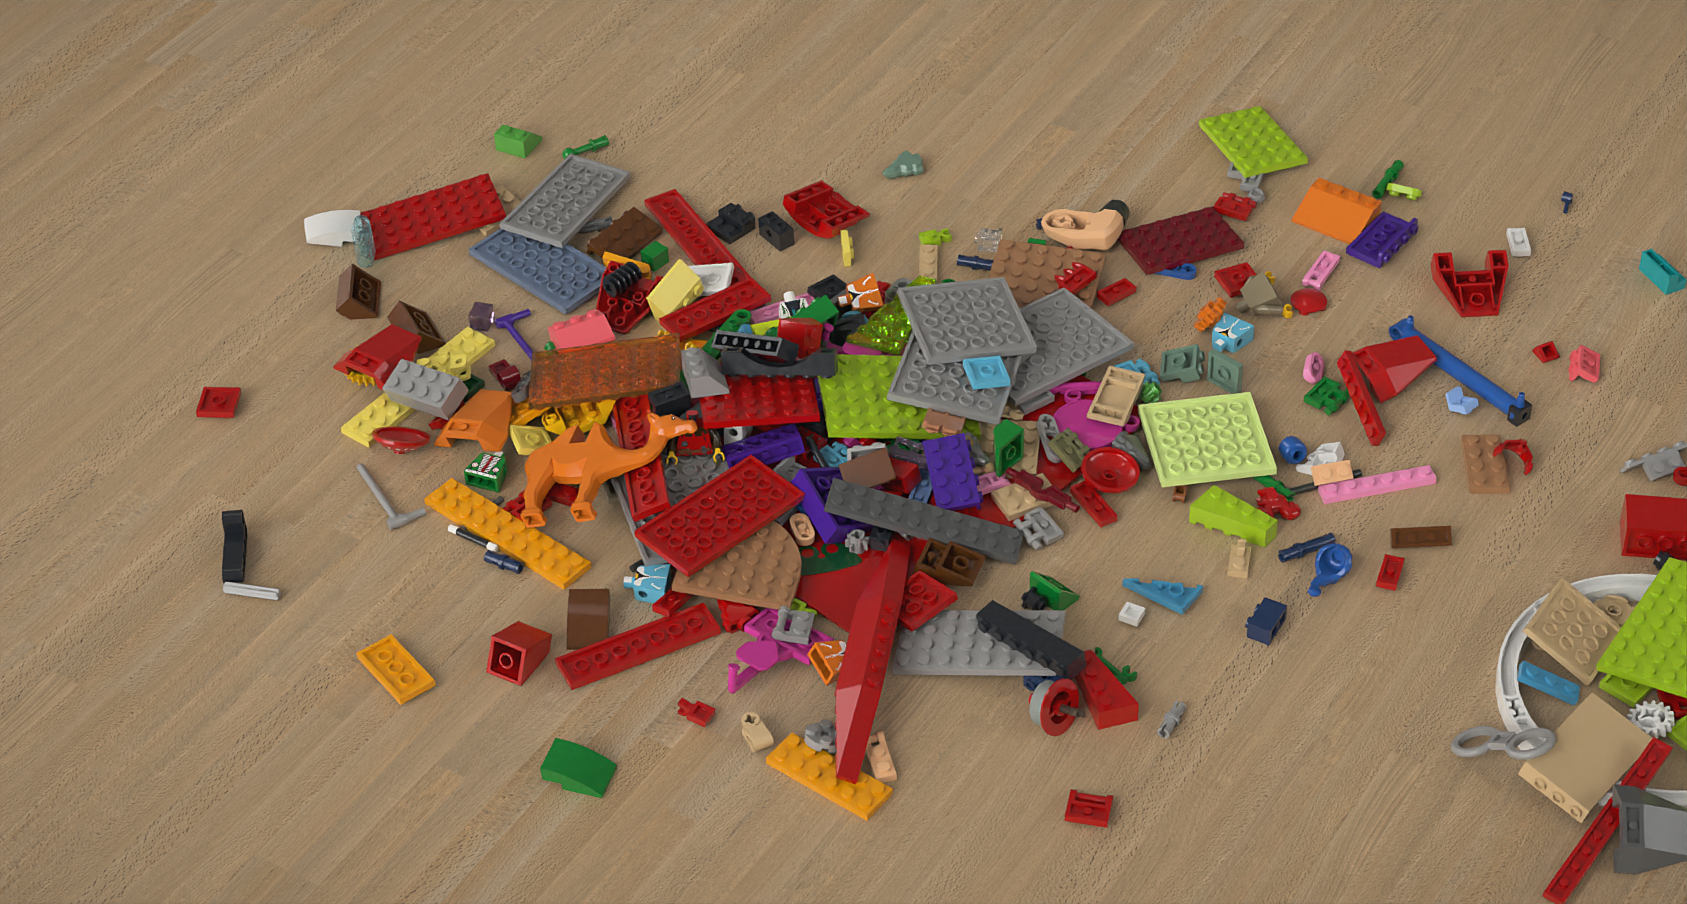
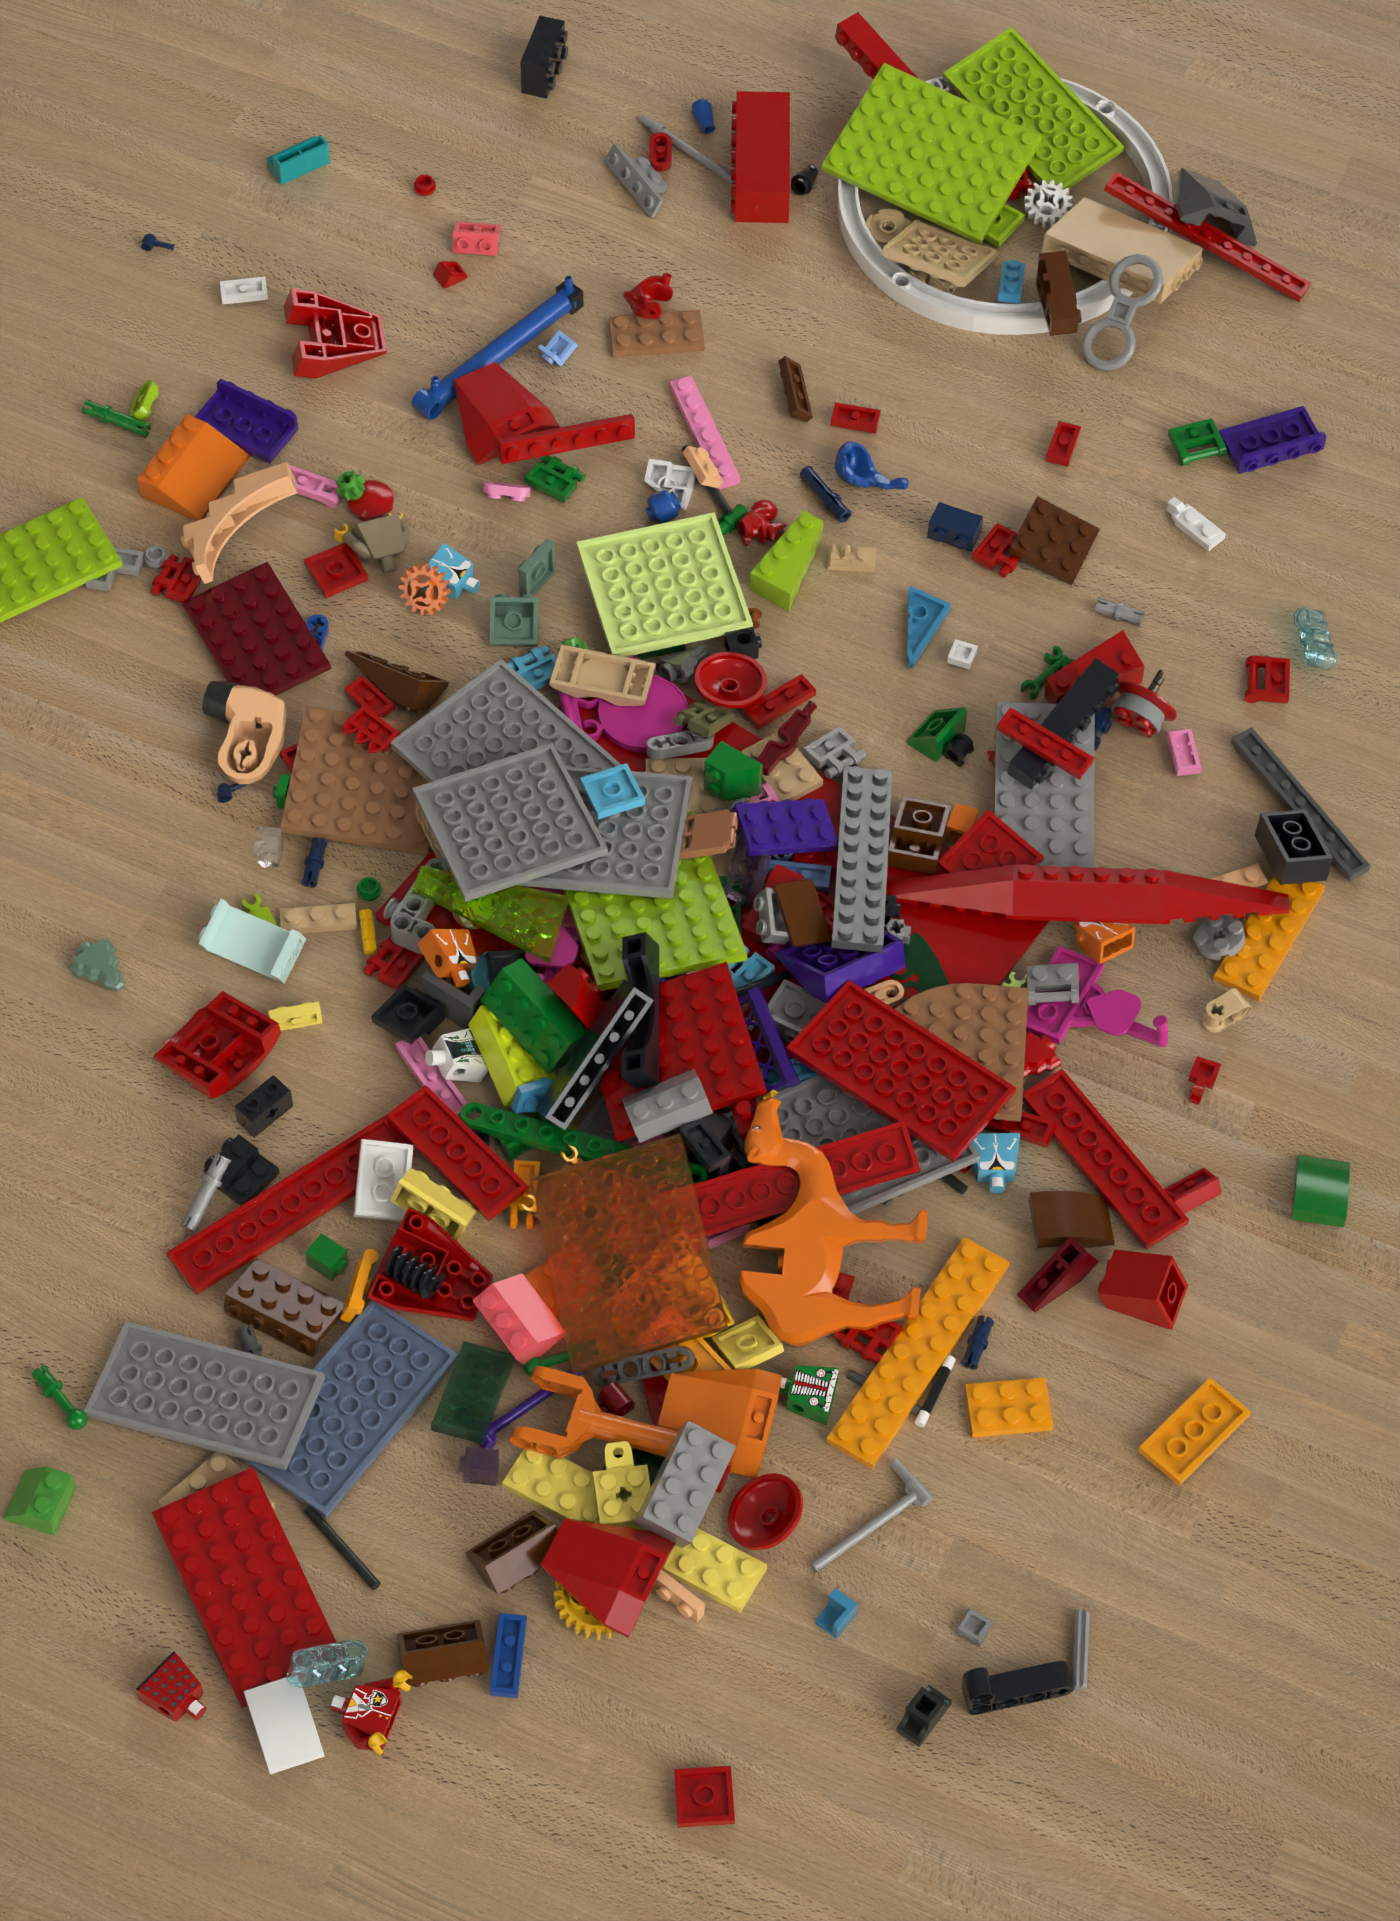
camera: 100 degrees left, 15 degrees up
(232, 499) = (923, 1714): none -> pearl dark grey brick
(289, 540) = (974, 1627): none -> light grey tile
(322, 474) = (837, 1613): none -> dark azure panel
(325, 263) = (371, 1711): none -> red torso
(346, 323) = (508, 1655): none -> blue plate
(360, 398) = (686, 1602): none -> light nougat plate
(374, 187) = (172, 1690): none -> red torso
(439, 263) = (342, 1548): none -> pearl dark grey bar
(448, 575) = (1008, 1407): none -> light orange plate
(495, 355) = (587, 1422): none -> orange piece
(530, 310) = (473, 1392): none -> clear green plate
(545, 608) = (1059, 1274): none -> dark red slope
(599, 696) = (1194, 1190): none -> red slope
(716, 201) = (210, 1182): none -> light grey pin
(899, 786) = (1293, 846): none -> black brick
(922, 219) = (251, 942): none -> light aqua panel
(953, 810) = (1295, 797): none -> dark grey plate
(965, 594) = (960, 821): none -> orange brick
(1001, 615) = (1045, 743): none -> red plate
(1017, 741) = (1183, 752): none -> bright pink plate
(1127, 842) = (1315, 638): none -> clear light blue piece
(1132, 306) = (400, 684): none -> reddish brown wedge
(1150, 485) = (743, 642): none -> black brick
(1244, 644) = (993, 548): none -> red plate
(1249, 681) = (1054, 540): none -> reddish brown plate
(1268, 213) = (226, 515): none -> light nougat arch
(1268, 783) = (1195, 524): none -> white hinge
(1313, 281) = (350, 485): none -> bright green gear
(1361, 702) = (1063, 443): none -> red plate
(1364, 847) = (1272, 439): none -> dark purple bracket
(1369, 793) = (1194, 436): none -> green plate
(1518, 694) = (1057, 293): none -> reddish brown wedge
(1641, 340) = (424, 185): none -> red plate

